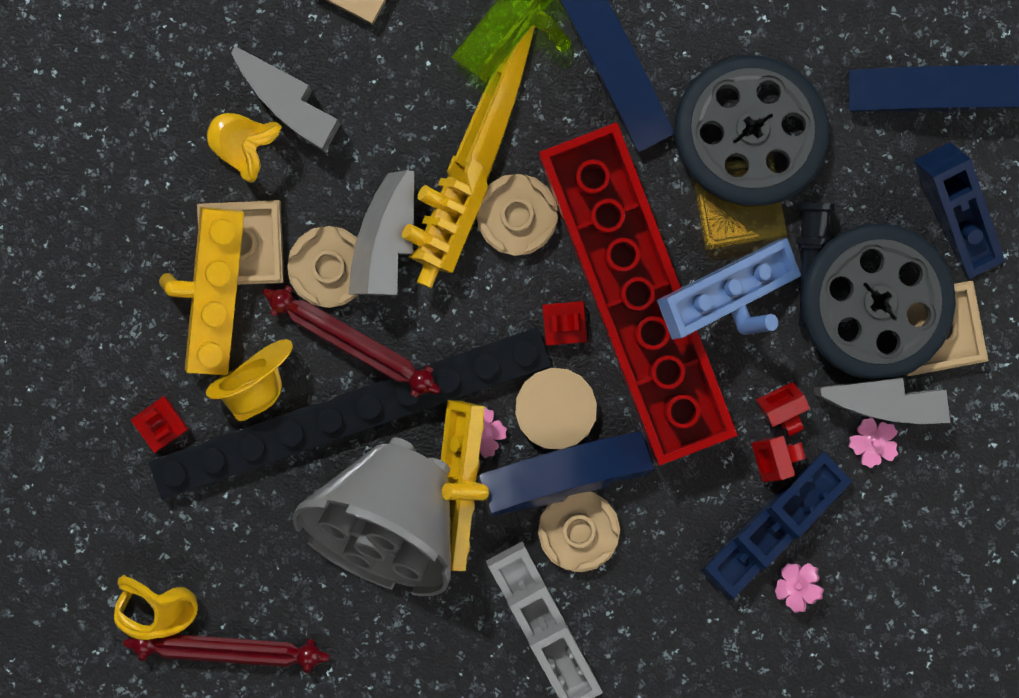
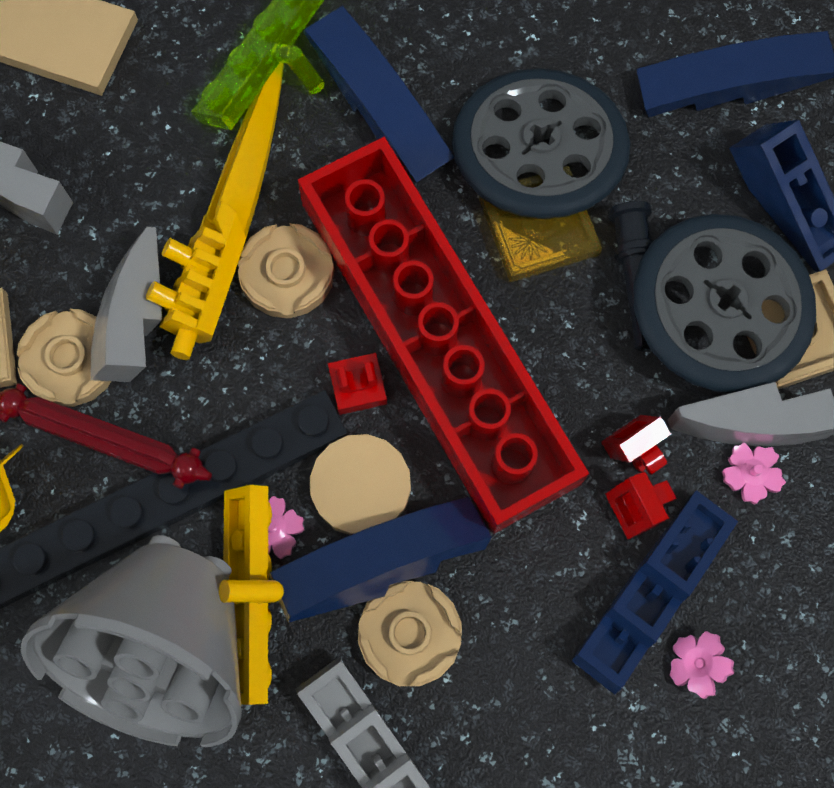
camera: 10 degrees left, 15 degrees down
(729, 292) = (549, 305): medium blue plate -> none

